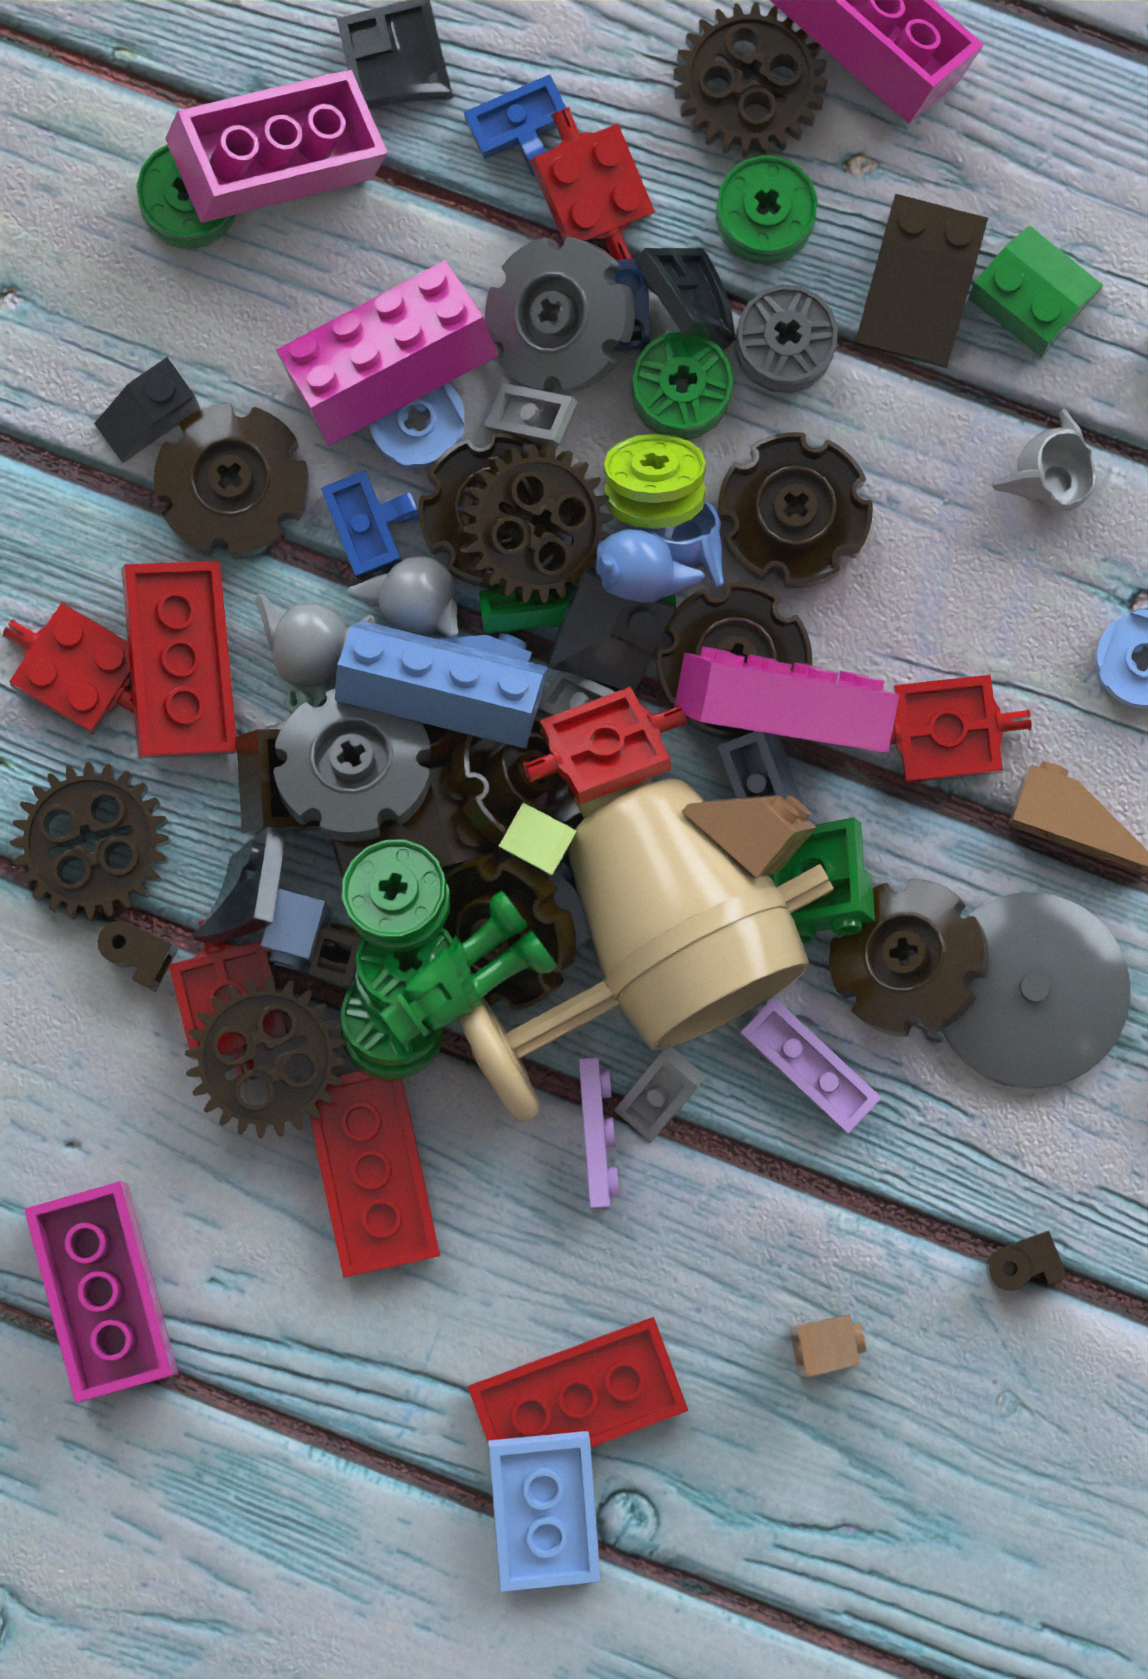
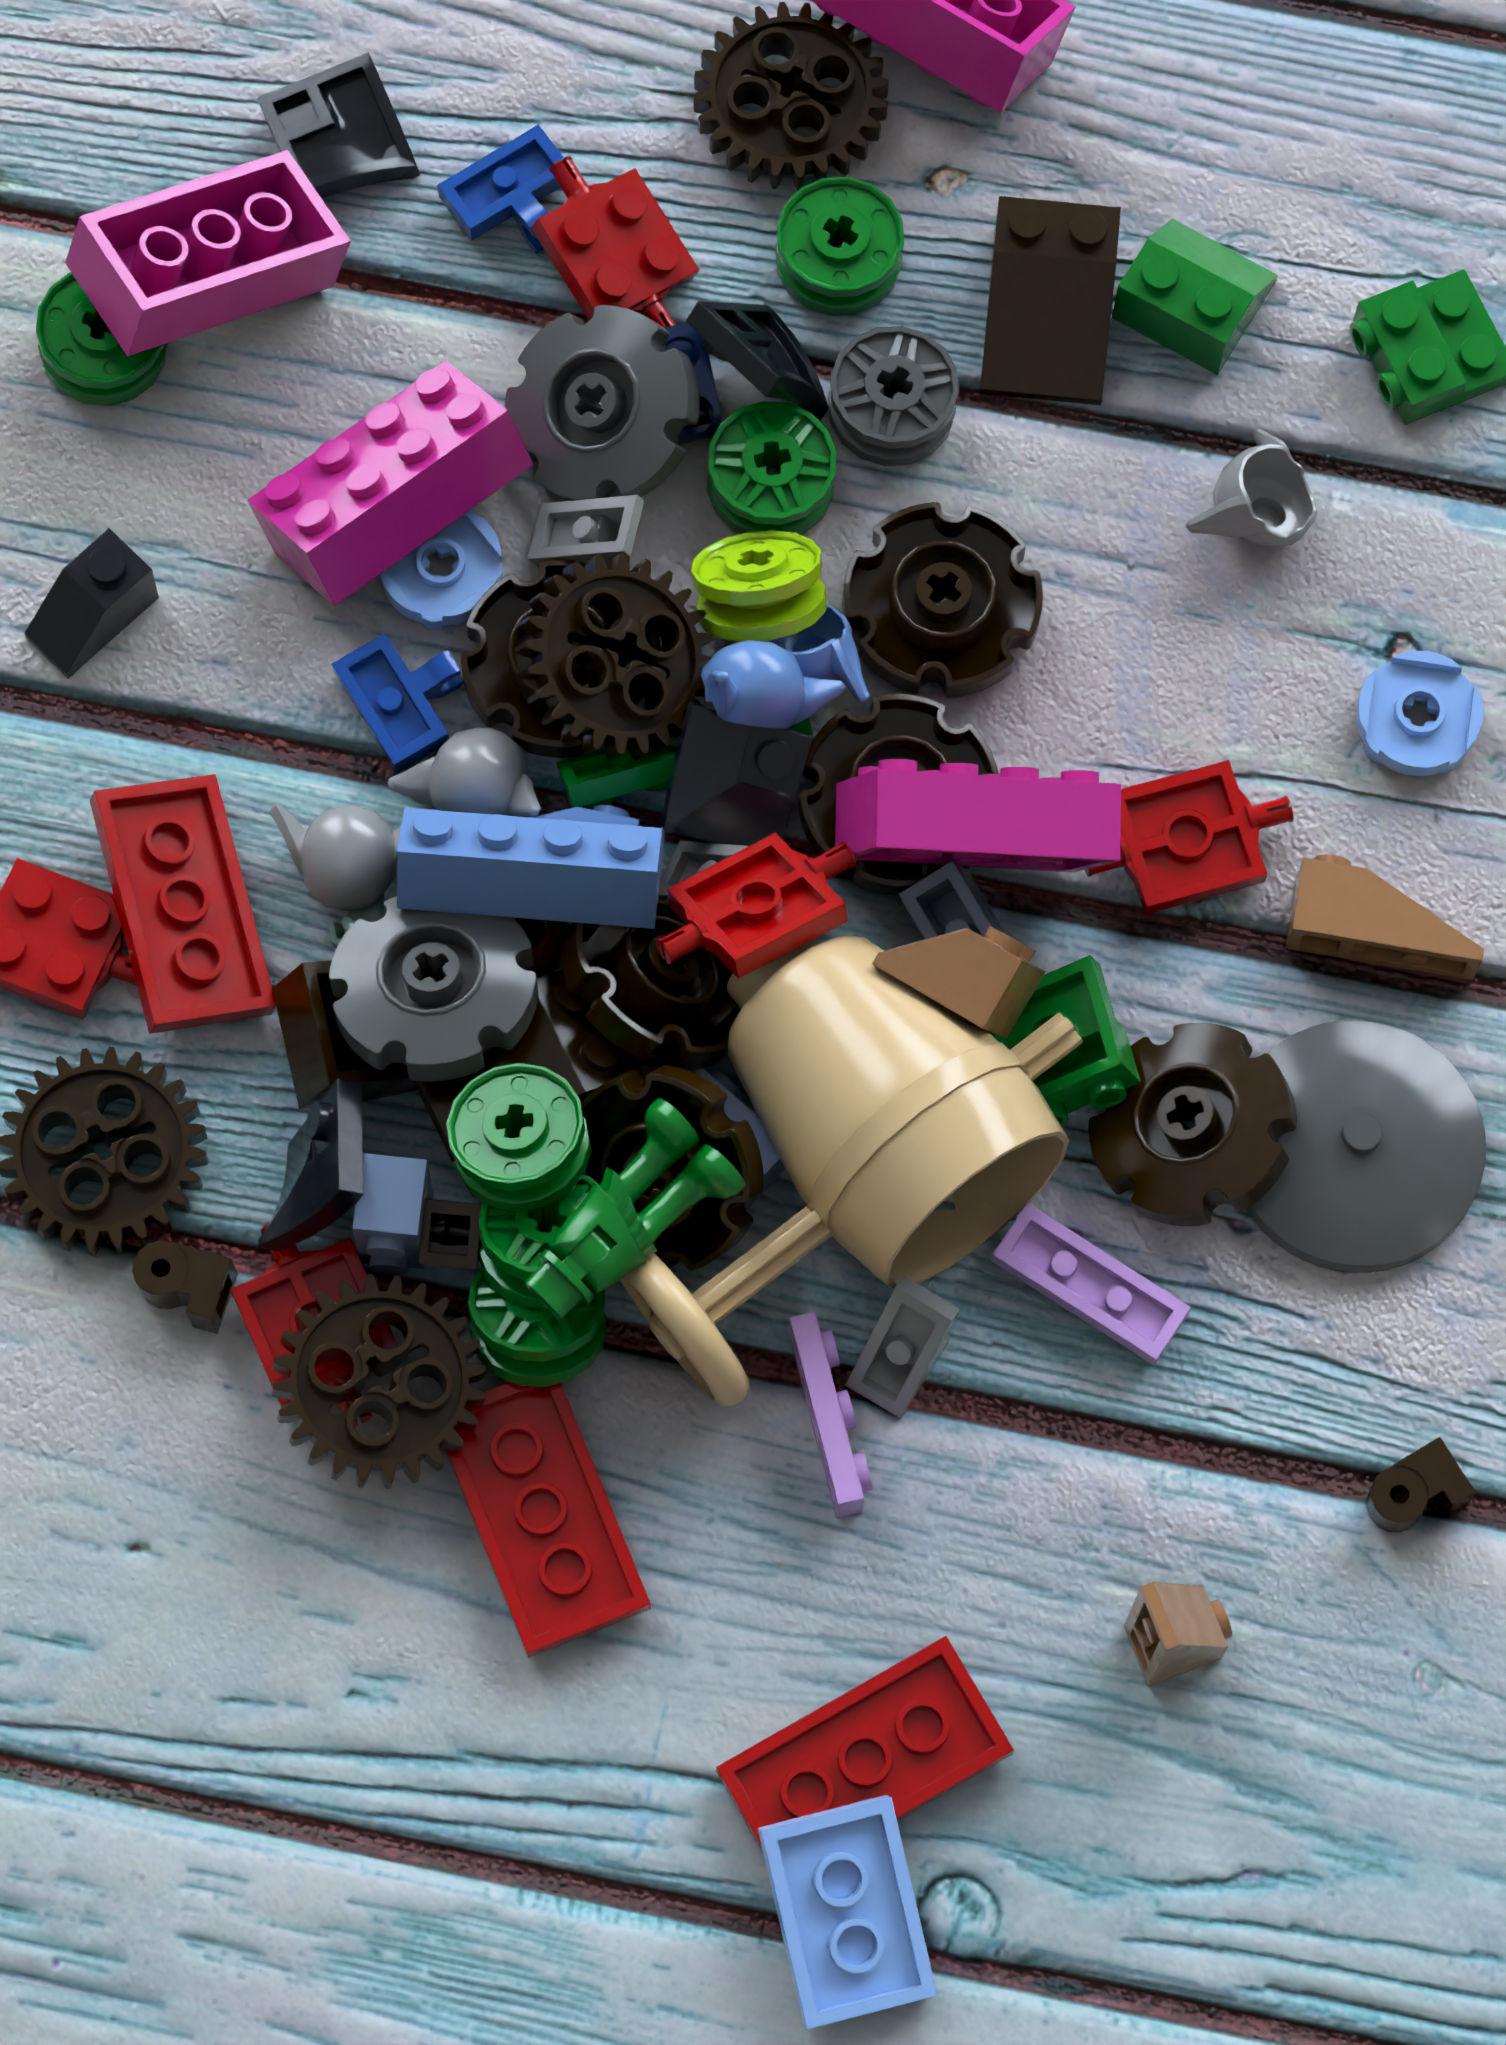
camera: 15 degrees left, 10 degrees down
(101, 1291) = (209, 1723): dark pink brick -> none
(242, 516) = (229, 715): dark brown piece -> none
(537, 839) = (691, 1034): yellowish green slope -> none

